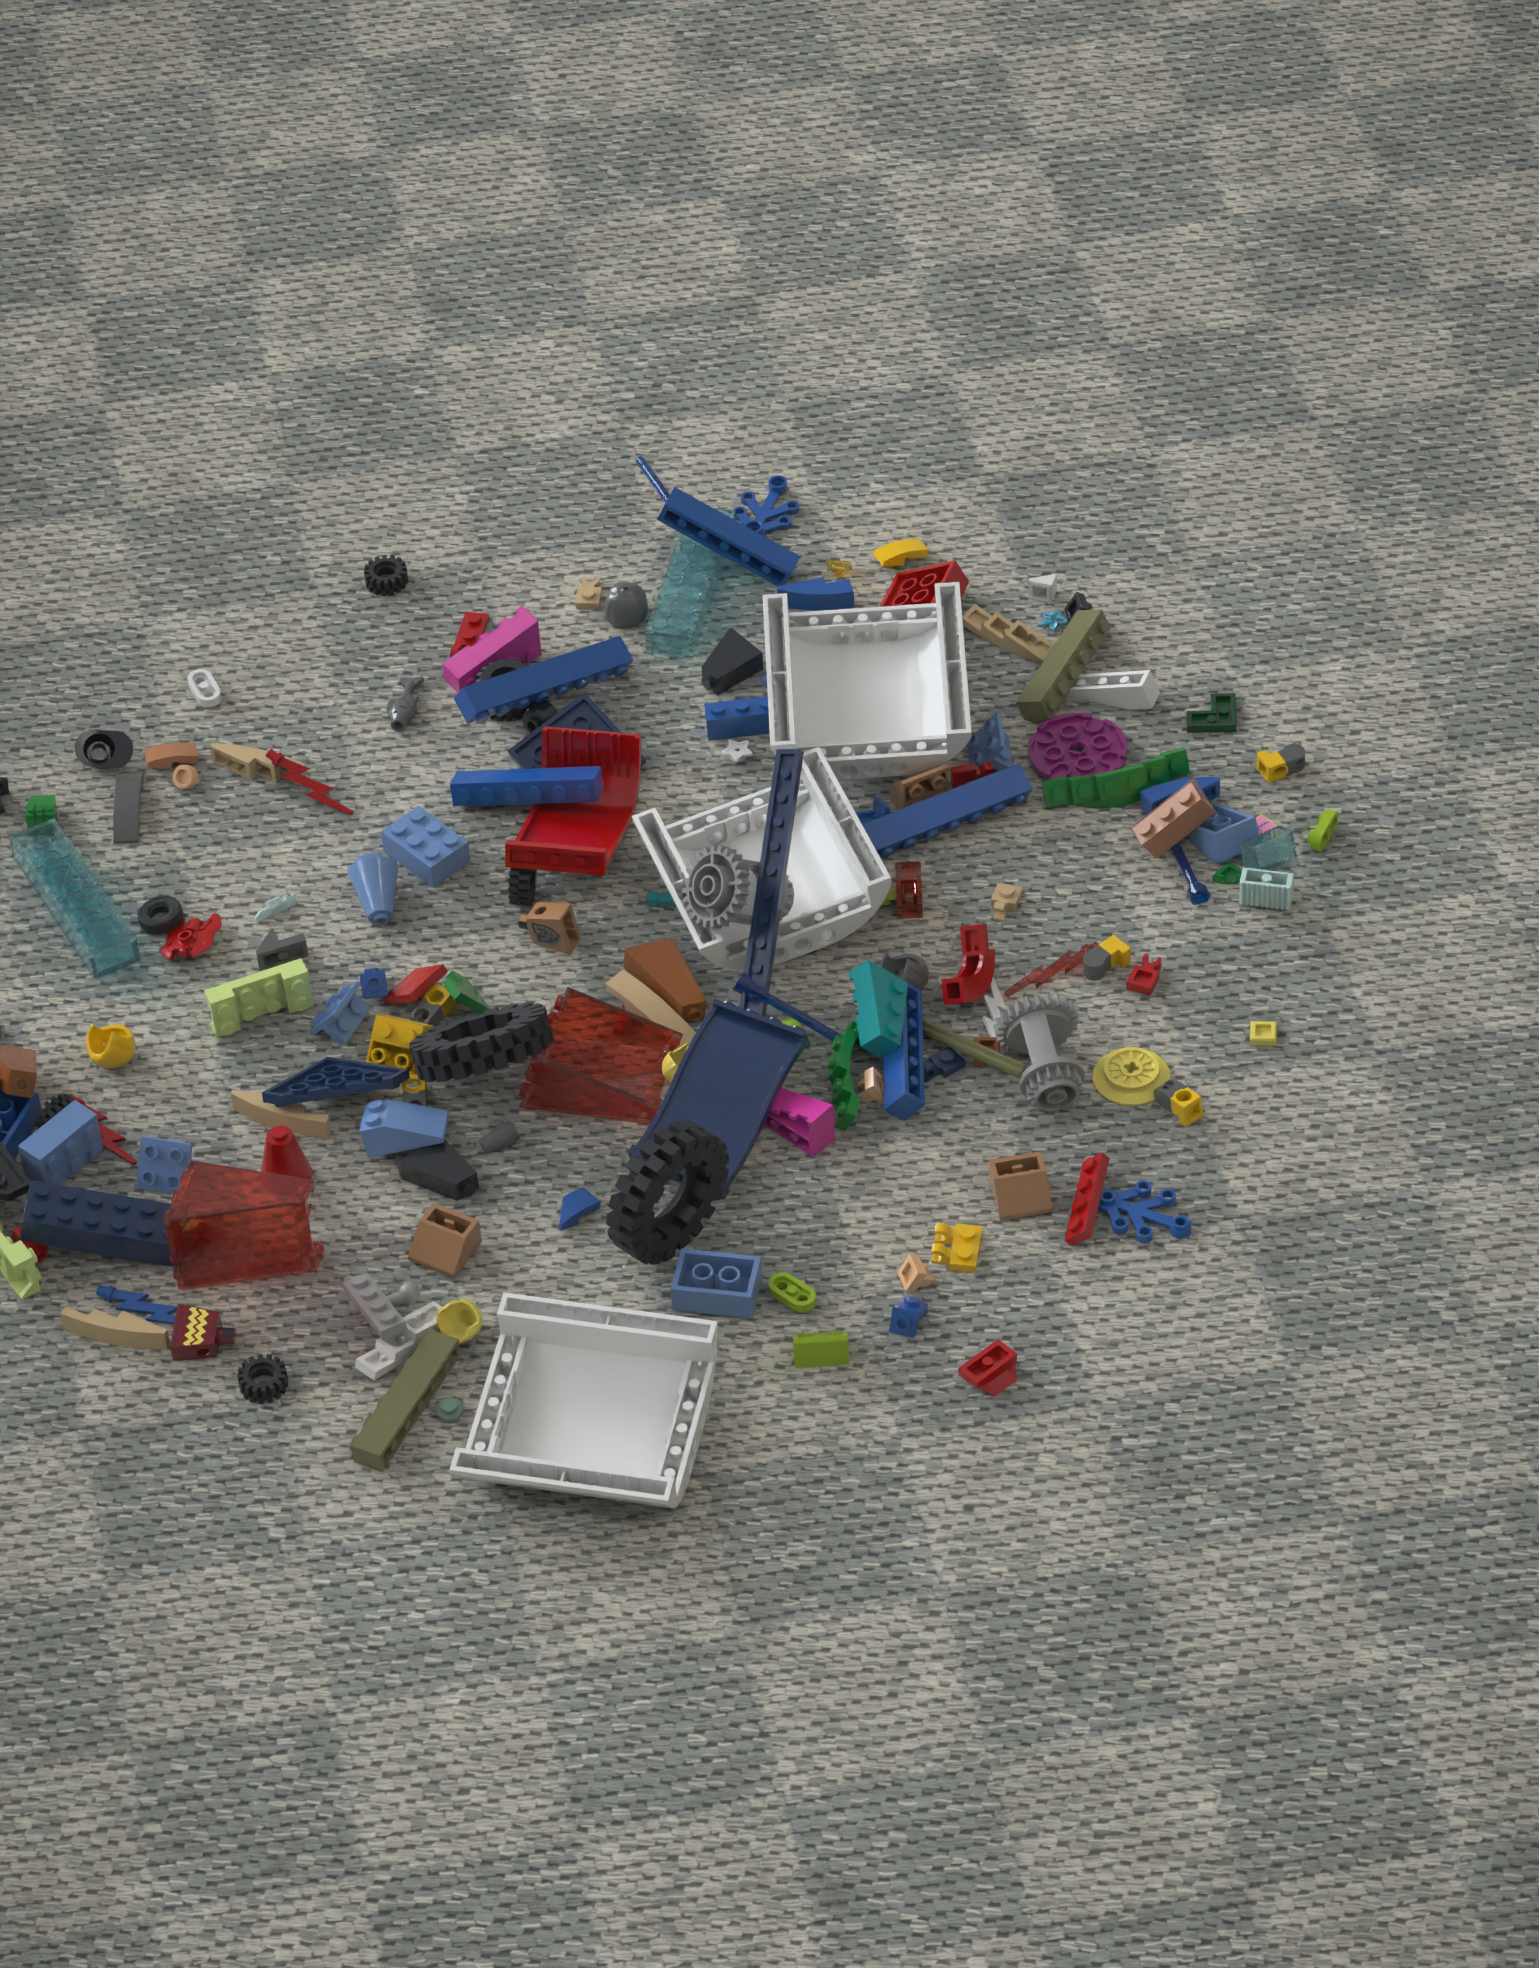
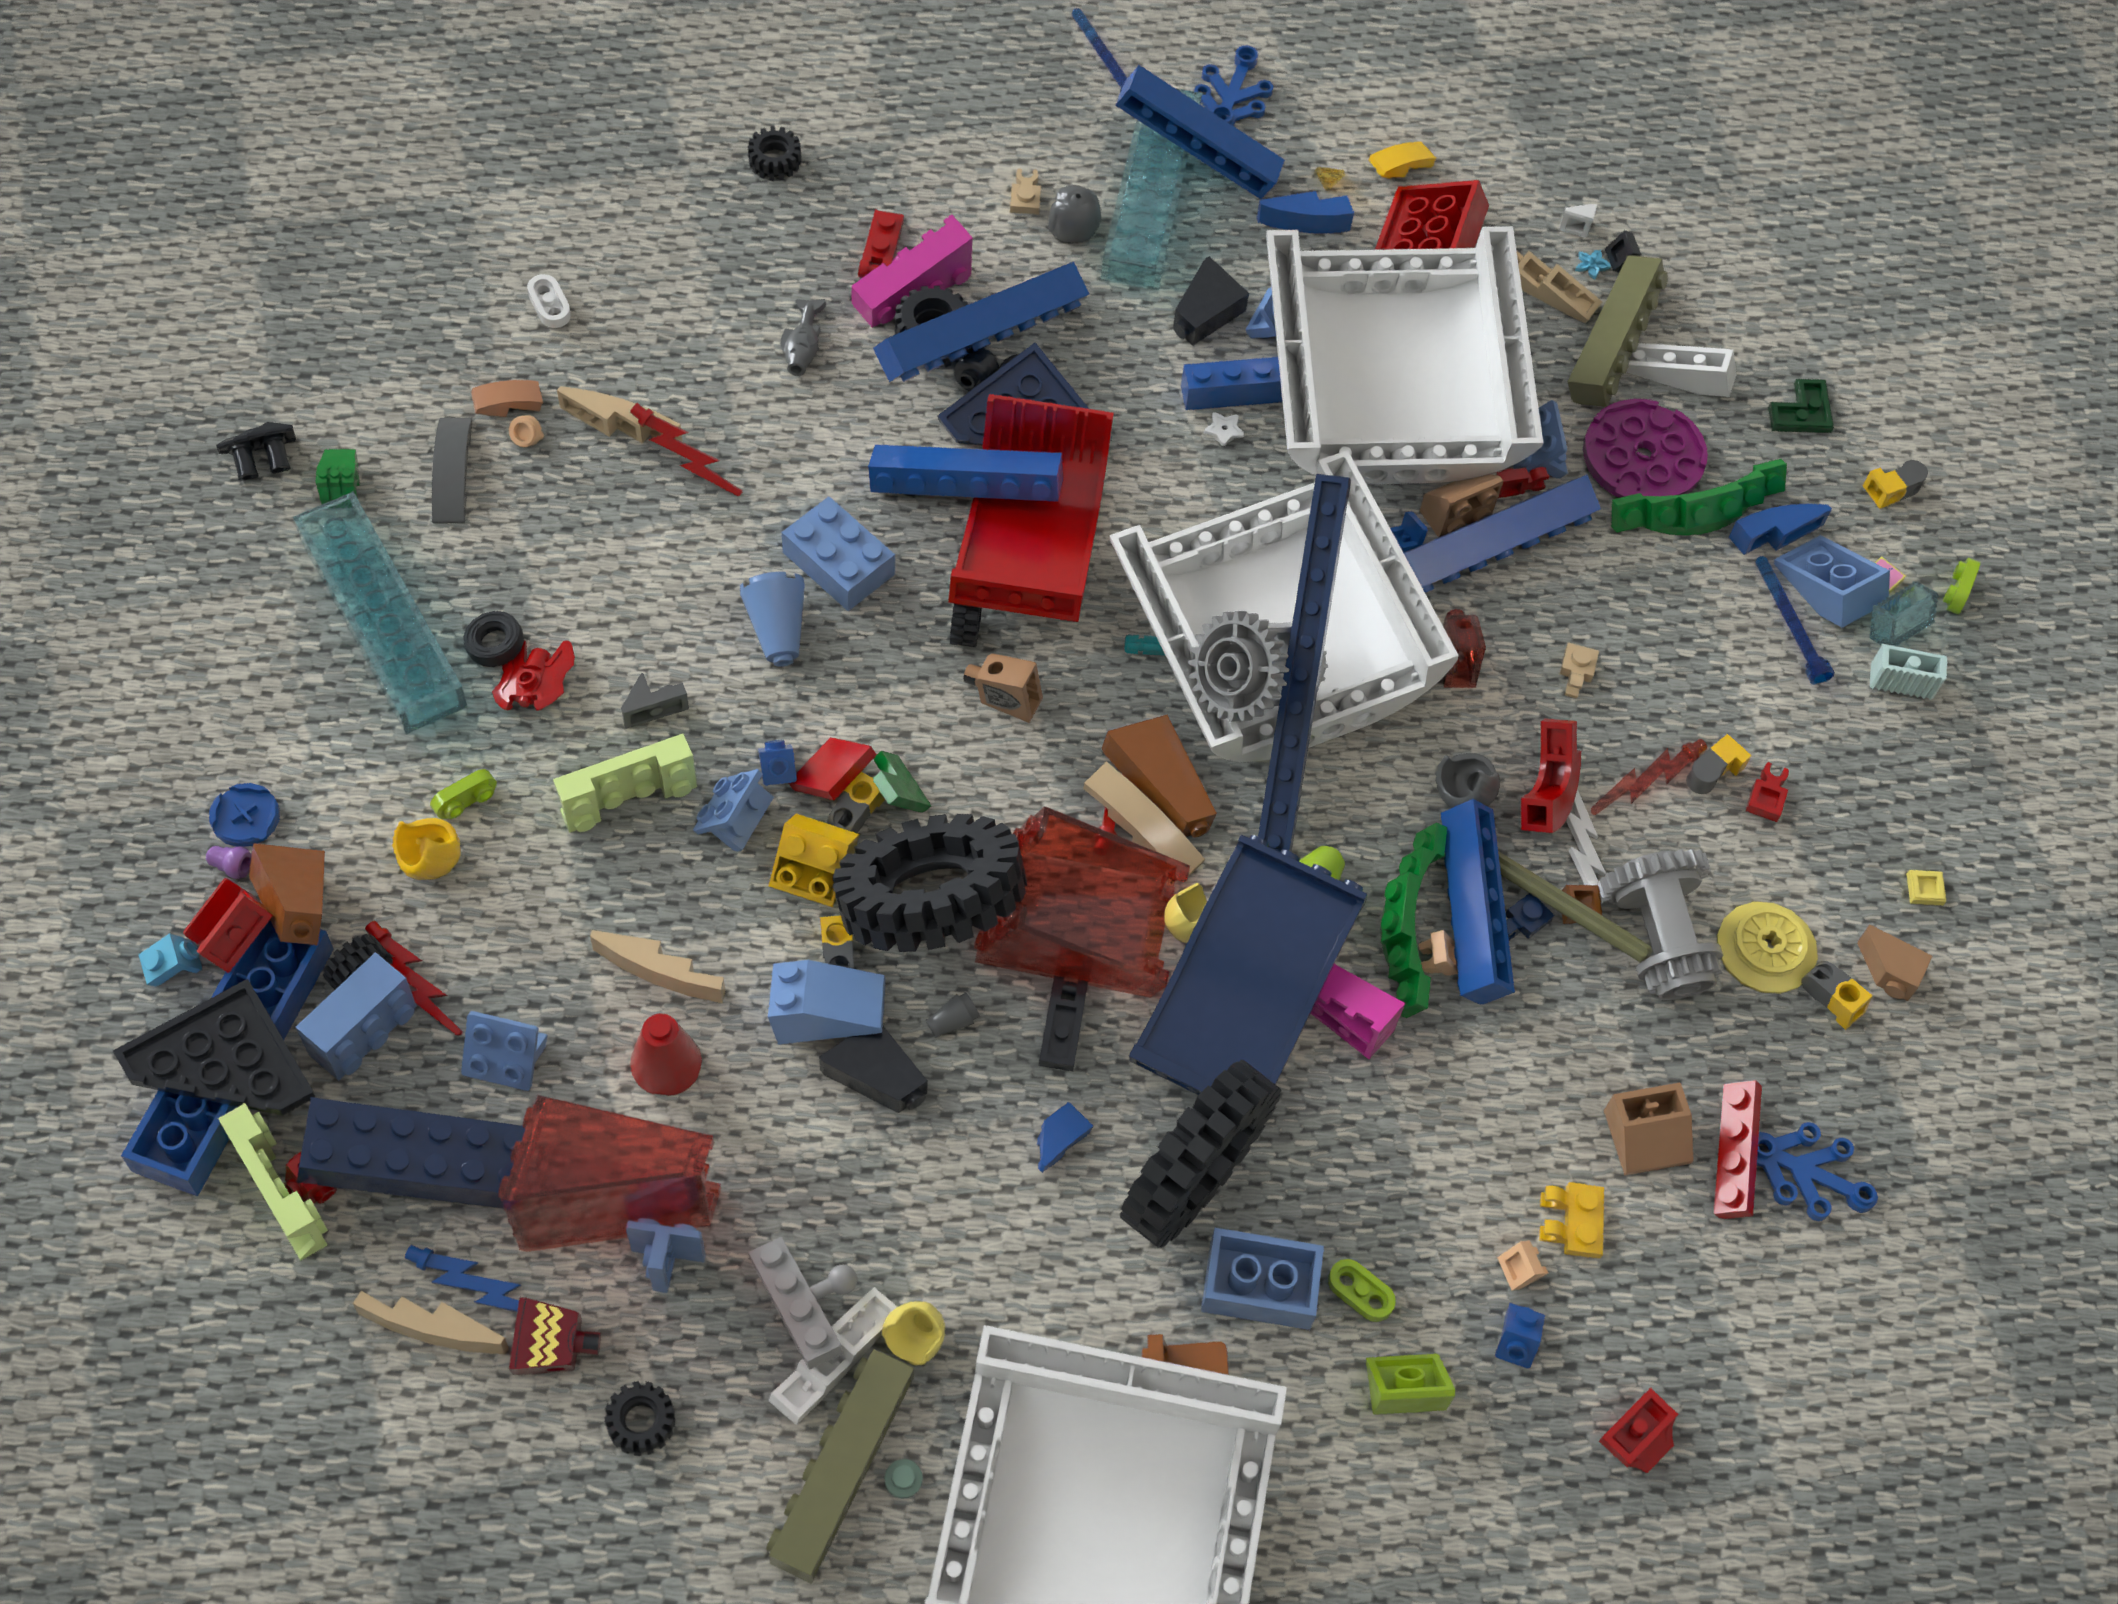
camera: 10 degrees left, 15 degrees up
(104, 749) = (419, 386): black piece -> none
(138, 1012) = (455, 798): none -> lime plate
(275, 906) = (644, 630): light aqua piece -> none
(281, 1275) = (662, 1246): none -> medium blue bracket
(334, 1078) = (730, 921): dark blue plate -> none
(445, 1240) = (886, 1190): medium nougat slope -> none
(582, 1140) = (1063, 1024): none -> black plate
(746, 986) = (1272, 802): clear blue piece -> none
(880, 1007) = (1452, 847): teal wedge -> none
(1173, 819) = (1782, 562): nougat slope -> none
(1227, 875) = (1853, 642): green tile -> none
(1227, 1079) = (1893, 962): none -> medium nougat slope

